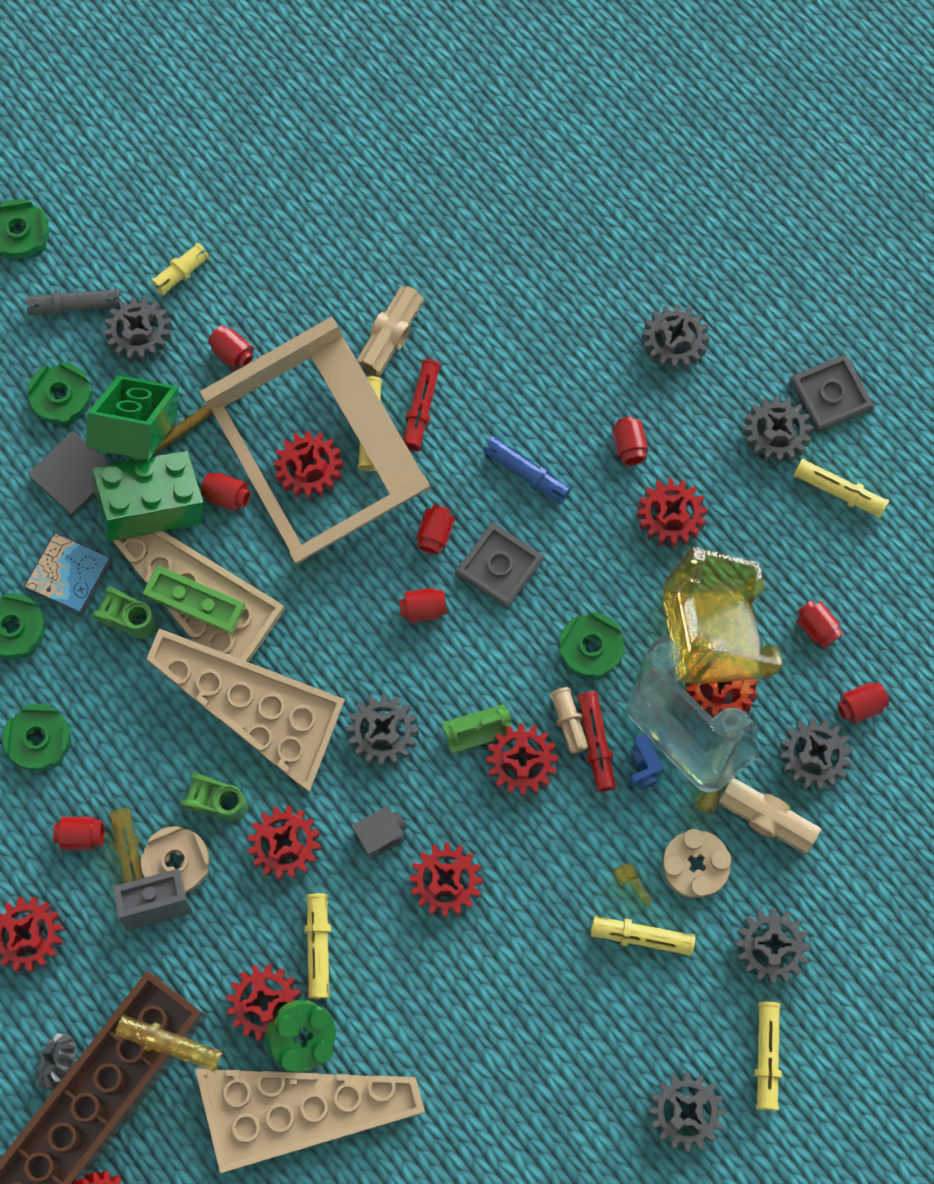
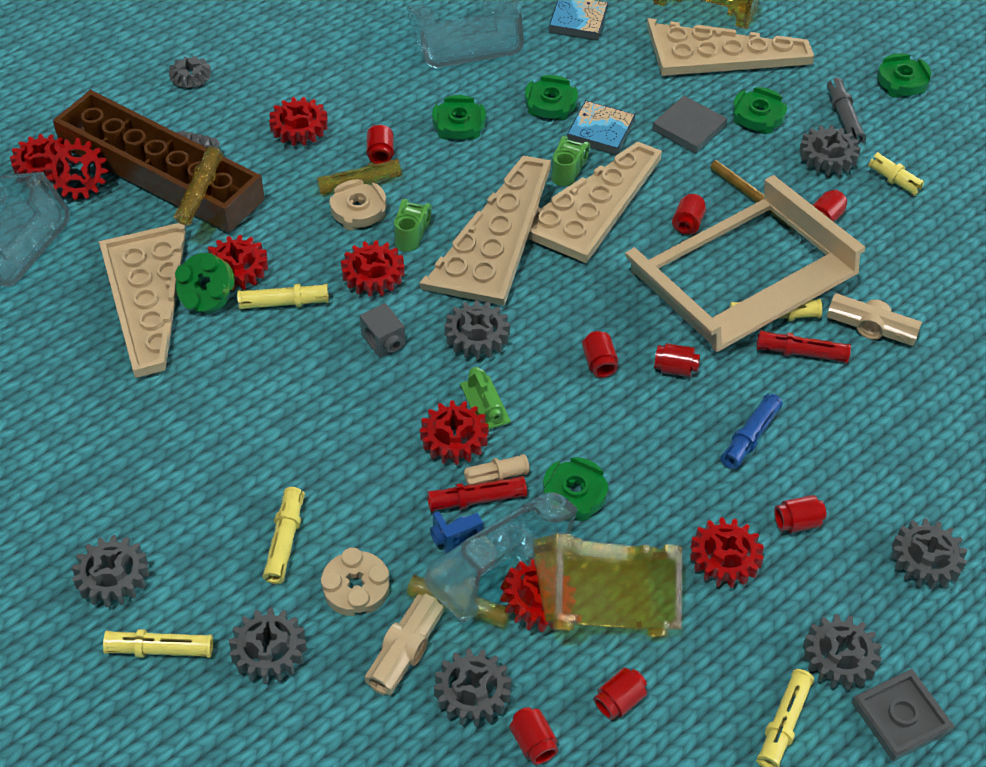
camera: 85 degrees right, 20 degrees down
(132, 417) = (740, 136): green brick -> none
(147, 496) = (672, 155): green brick -> none
(151, 900) = (323, 185): dark grey panel -> none
(194, 600) = (582, 191): bright green plate -> none
(302, 453) = (724, 267): red gear -> none
(435, 891) = (339, 379): red gear -> none
(499, 565) = (650, 416): dark grey tile -> none
(627, 873) = (345, 524): clear yellow hand -> none

